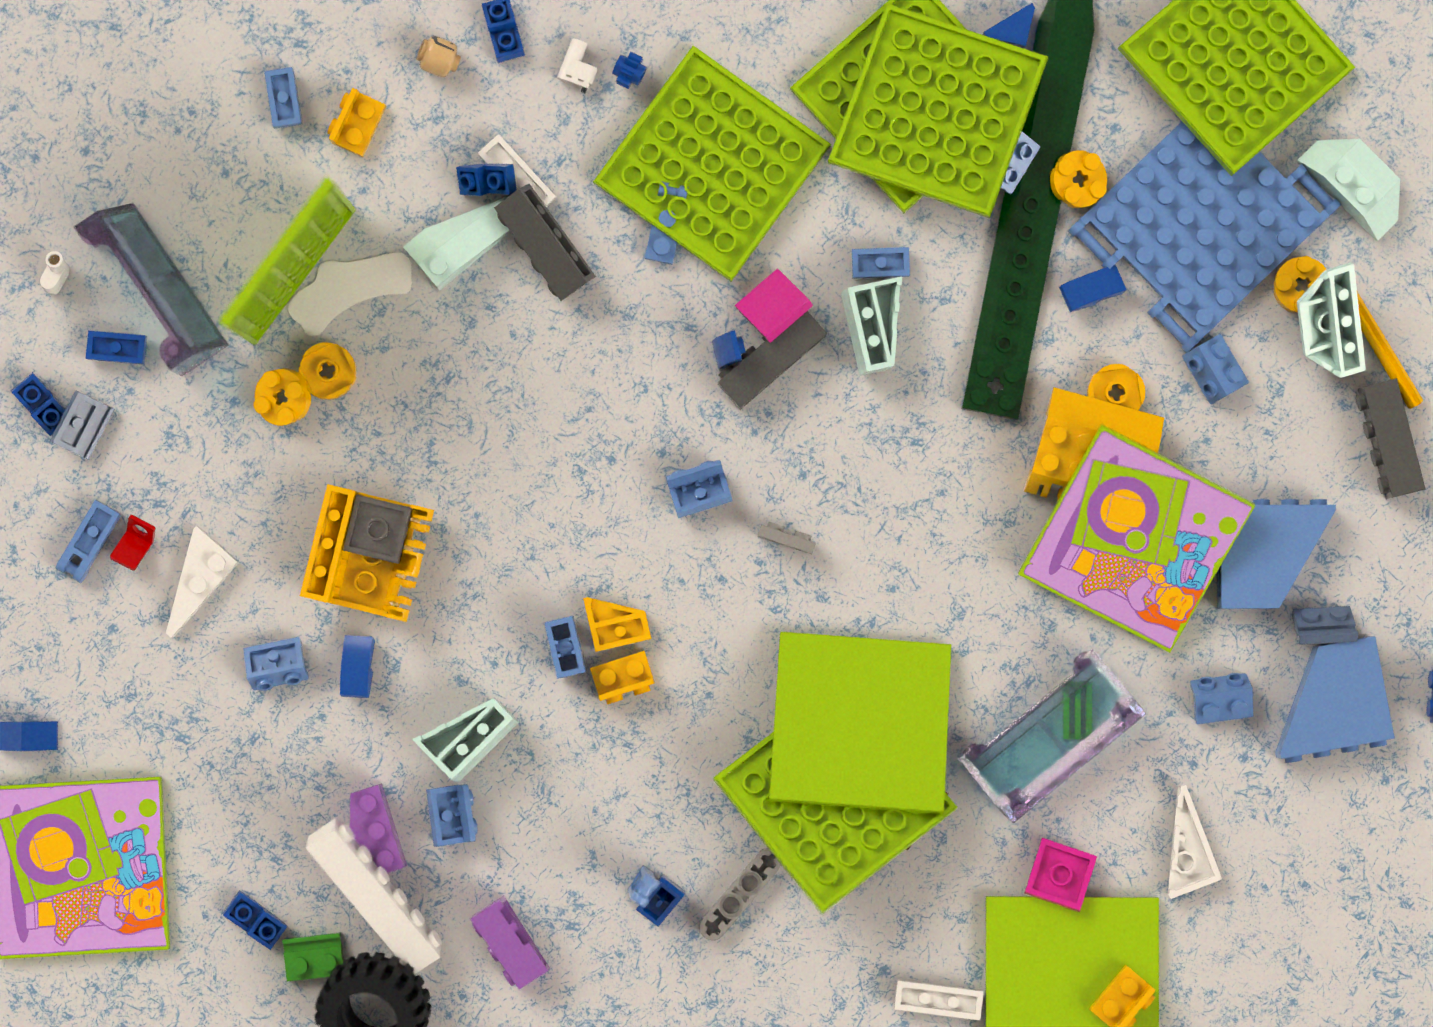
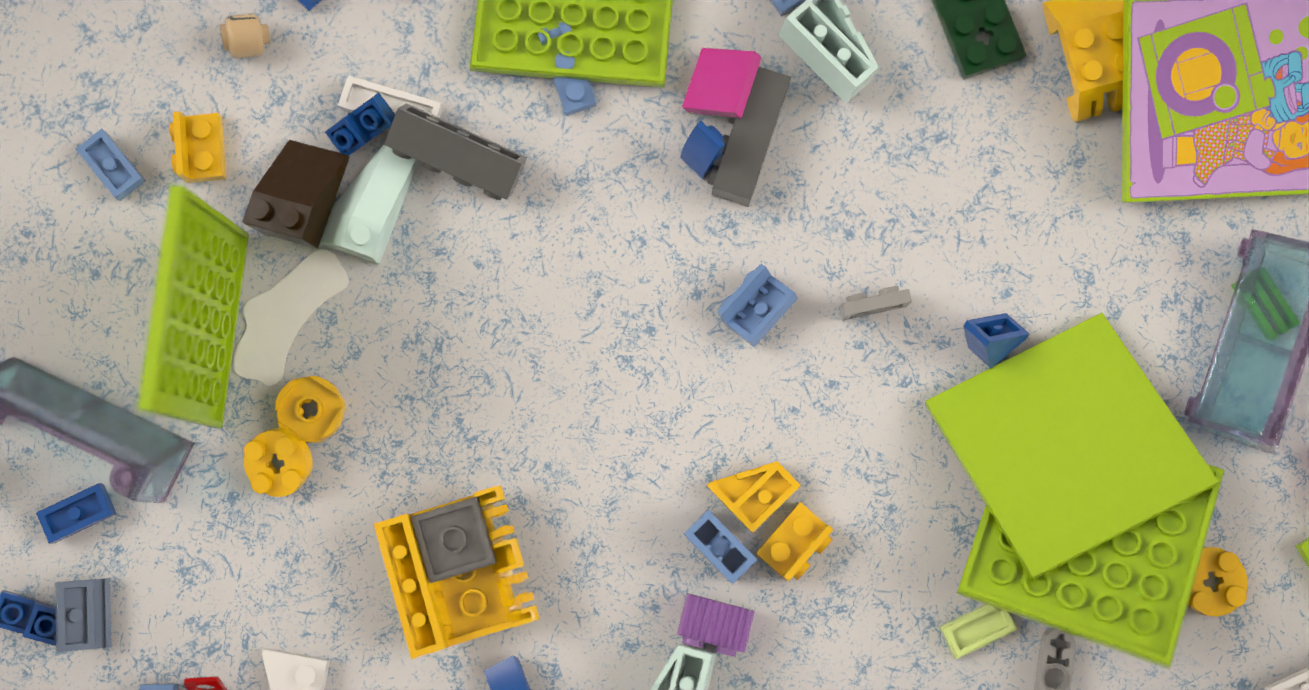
camera: 30 degrees left, 5 degrees down
(410, 202) = (297, 194): none -> dark brown slope
(529, 700) = (715, 624): none -> medium lavender brick
(715, 817) = (977, 629): none -> yellowish green tile
(859, 614) = (993, 337): none -> blue slope
(914, 899) = (1231, 588): none -> yellow plate

